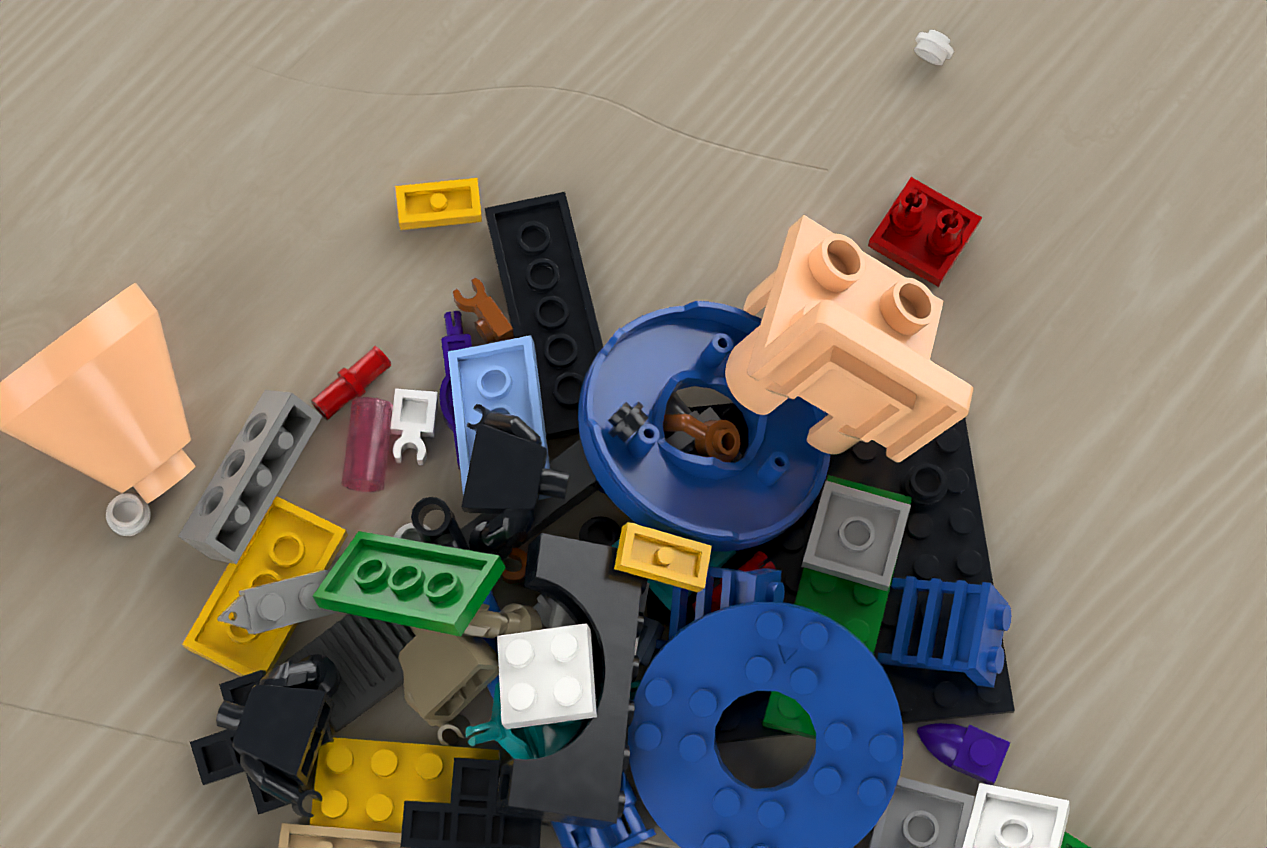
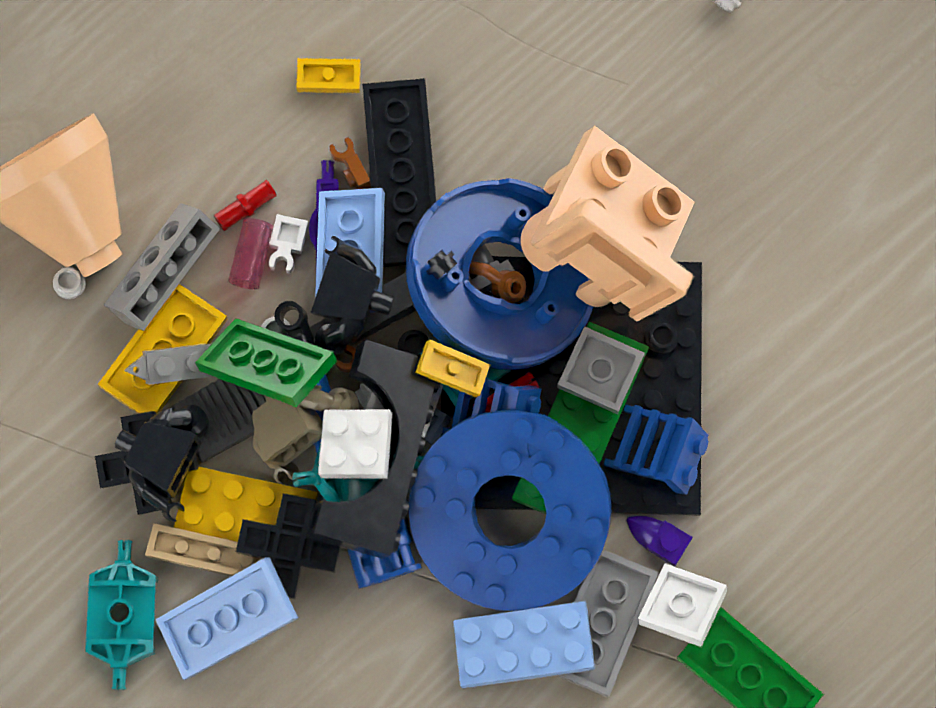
camera: 10 degrees right, 5 degrees up
(924, 231) = (694, 143): red plate -> none

